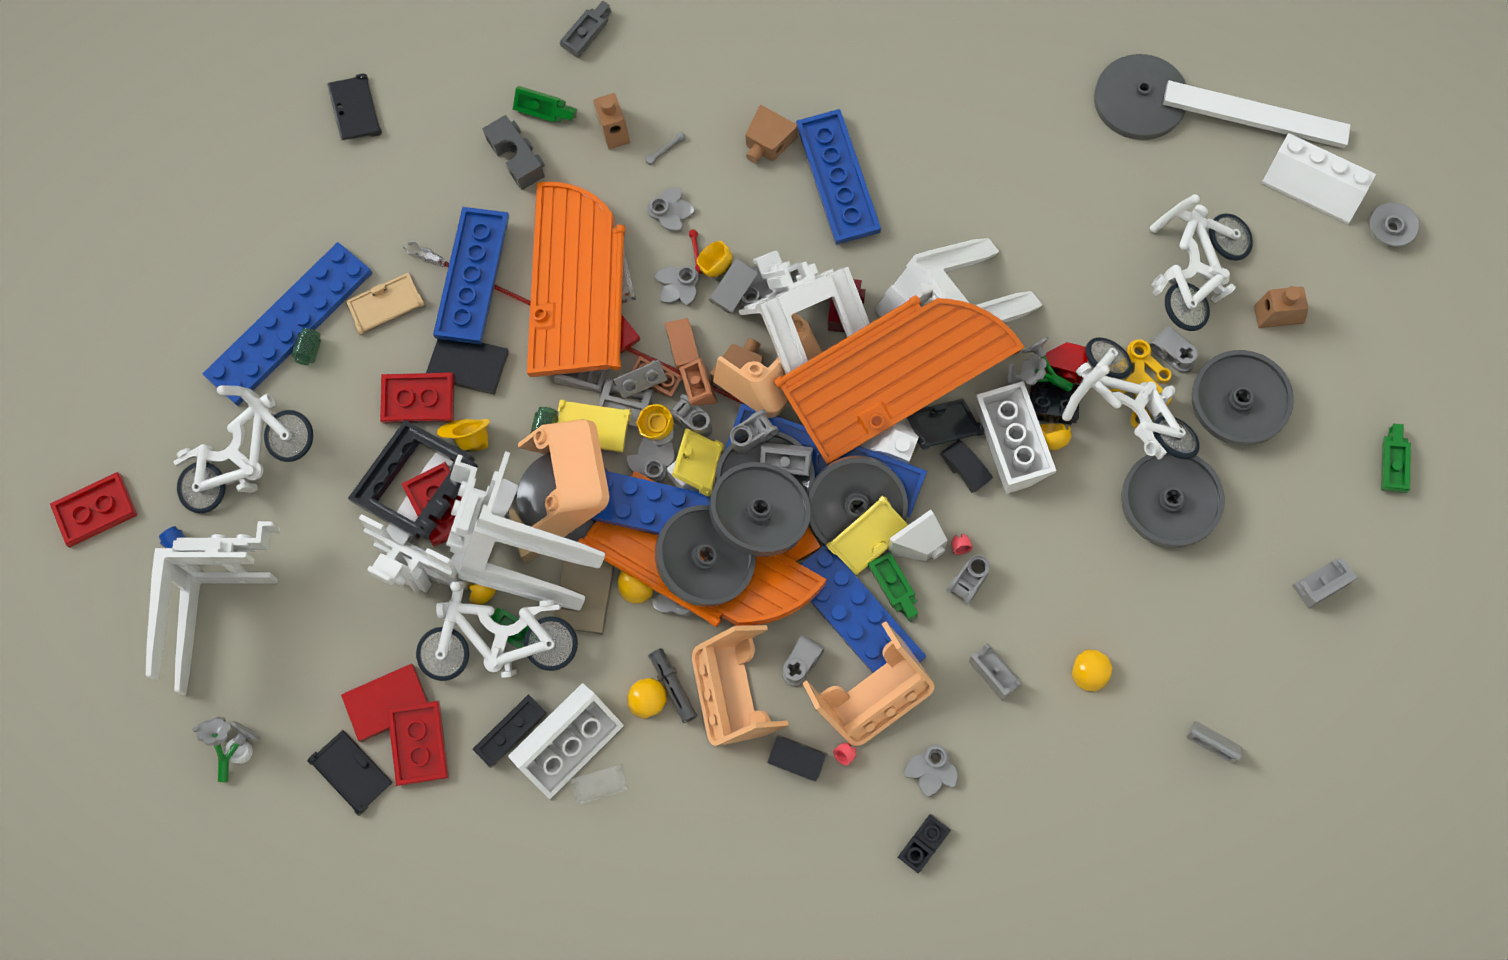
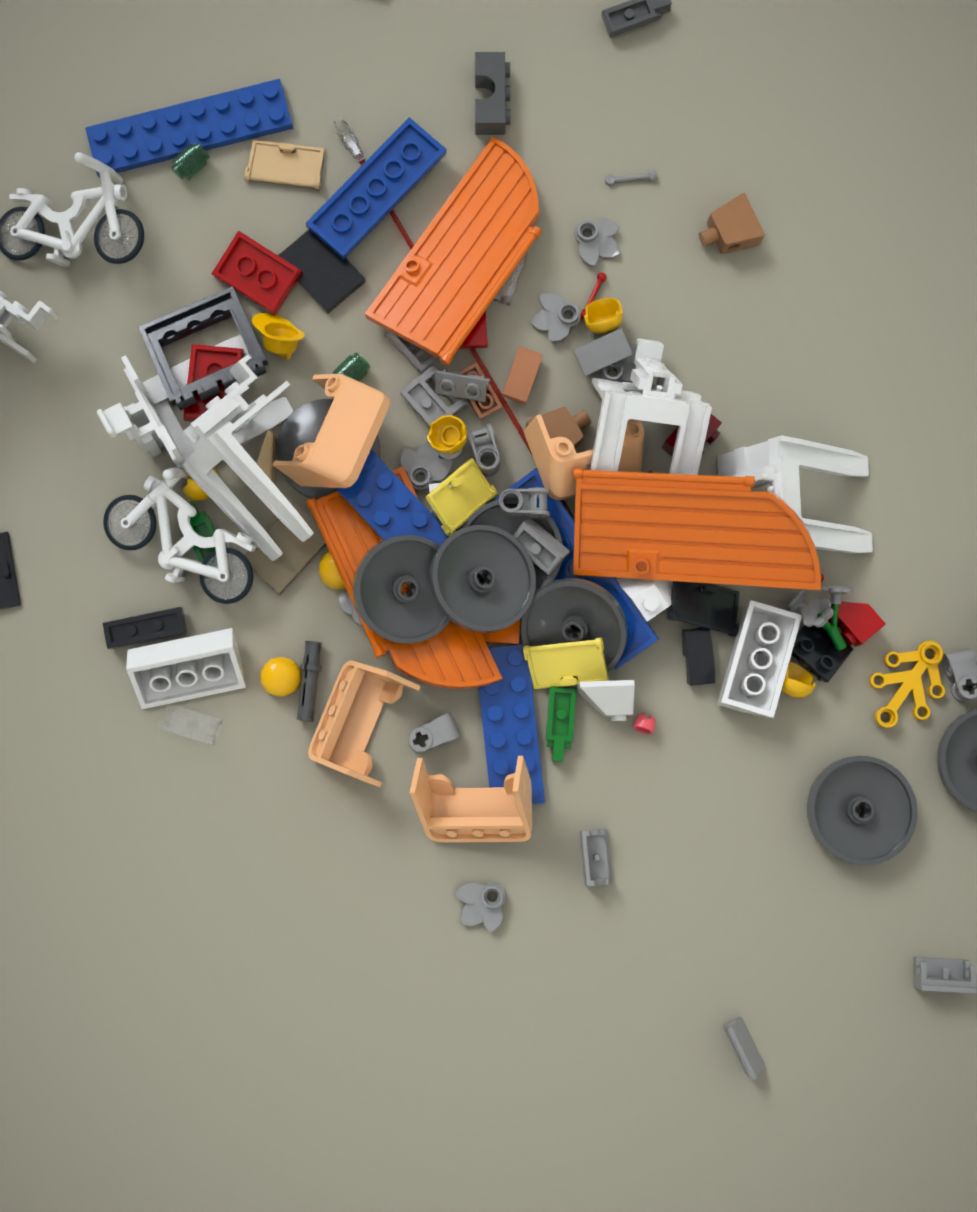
camera: 25 degrees right, 10 degrees up
(369, 702) = (58, 532): red tile -> none
(417, 743) = (61, 586): red tile -> none
(542, 105) = (545, 64): green hinge -> none
(610, 115) = (598, 115): medium nougat torso -> none
(610, 422) = (405, 407): light yellow door -> none
(698, 383) = (510, 423): nougat slope -> none
(797, 758) = (372, 816): black hinge -> none
(838, 177) = (769, 308): blue plate -> none
(844, 753) = (416, 840): coral hinge -> none
(924, 843) = (431, 962): black slope -> none
(967, 582) = (628, 761): light grey piece -> none
(1091, 670) = (681, 912): yellow hair -> none
(1112, 364) = (896, 649): white piece -> none

